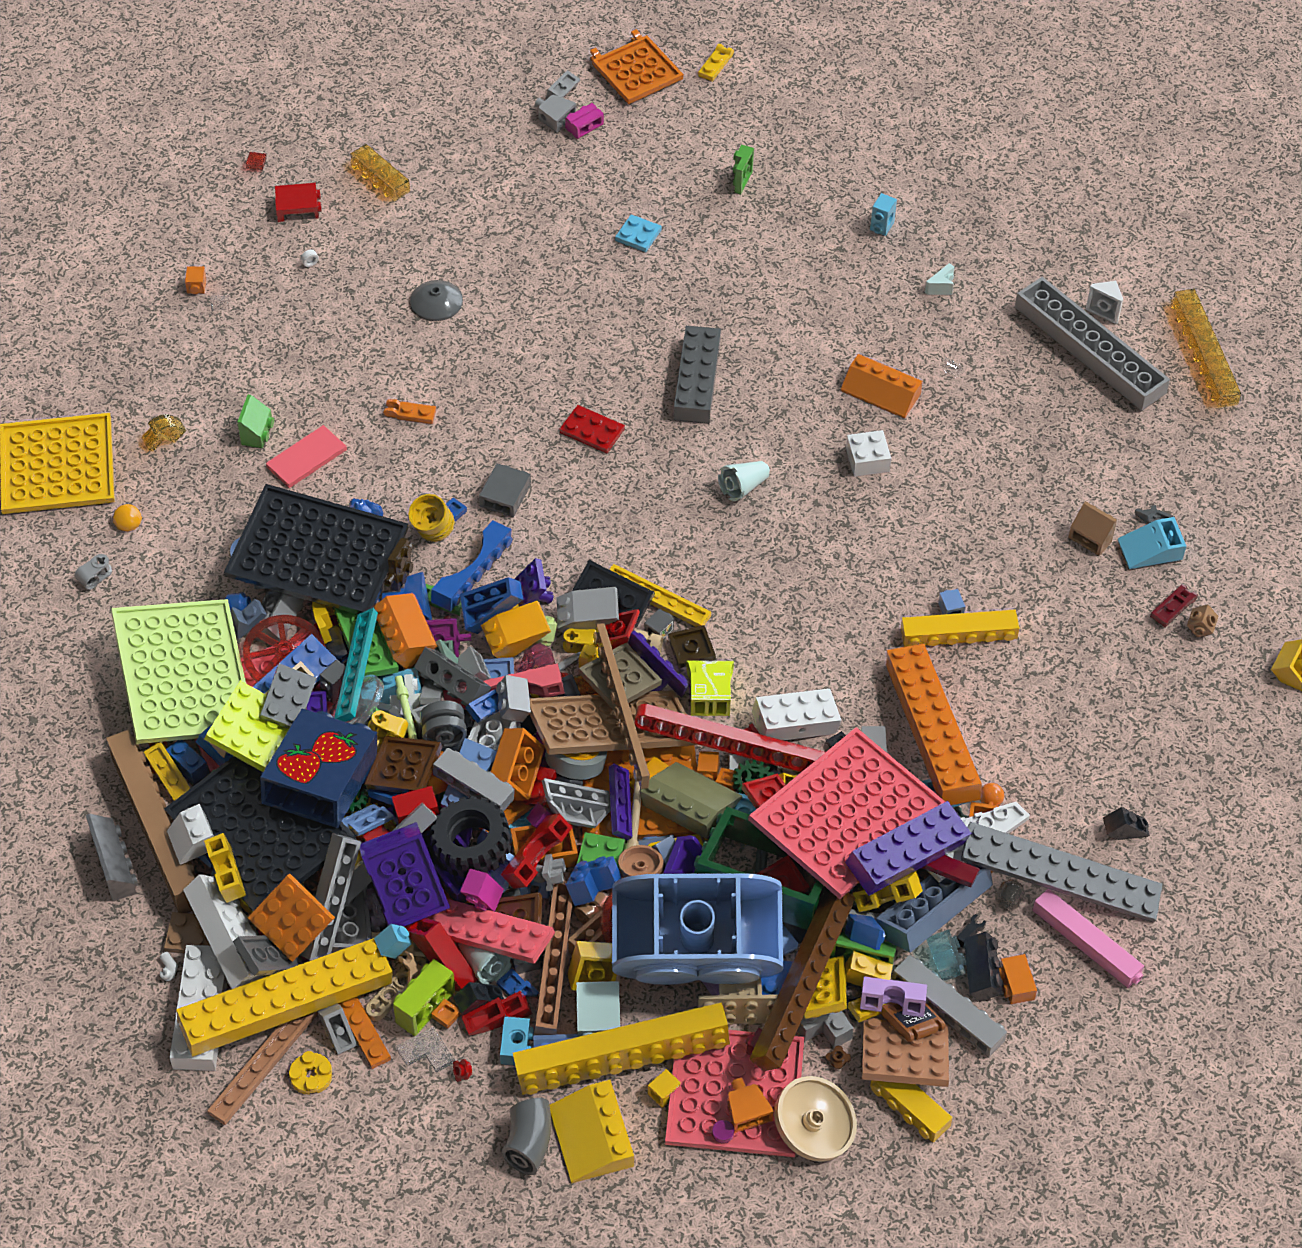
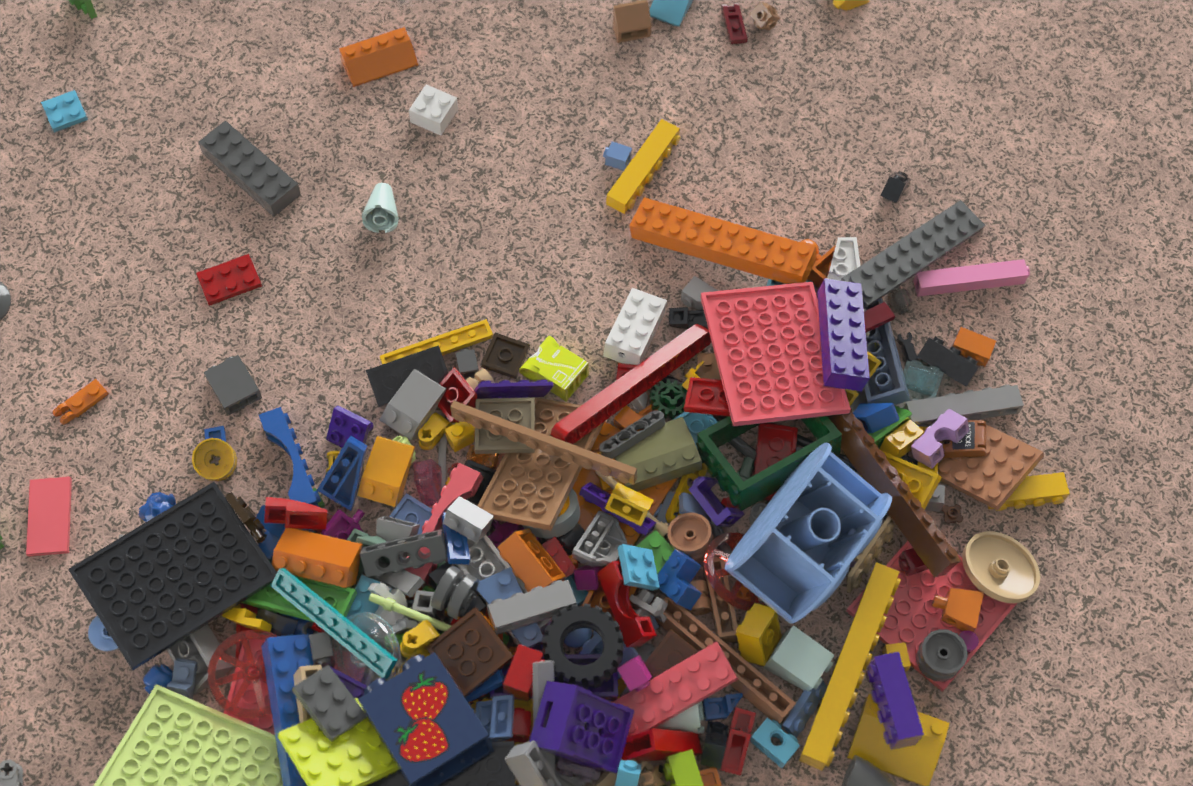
camera: 55 degrees left, 10 degrees up
(425, 590) = (294, 514): none -> red slope
(574, 839) = (638, 567): none -> medium azure plate
(610, 1090) = (894, 701): none -> dark purple brick
(626, 802) = (629, 504): none -> yellow brick
(688, 1113) = (941, 655): none -> dark grey wheel
(693, 770) = (614, 446): none -> dark grey beam

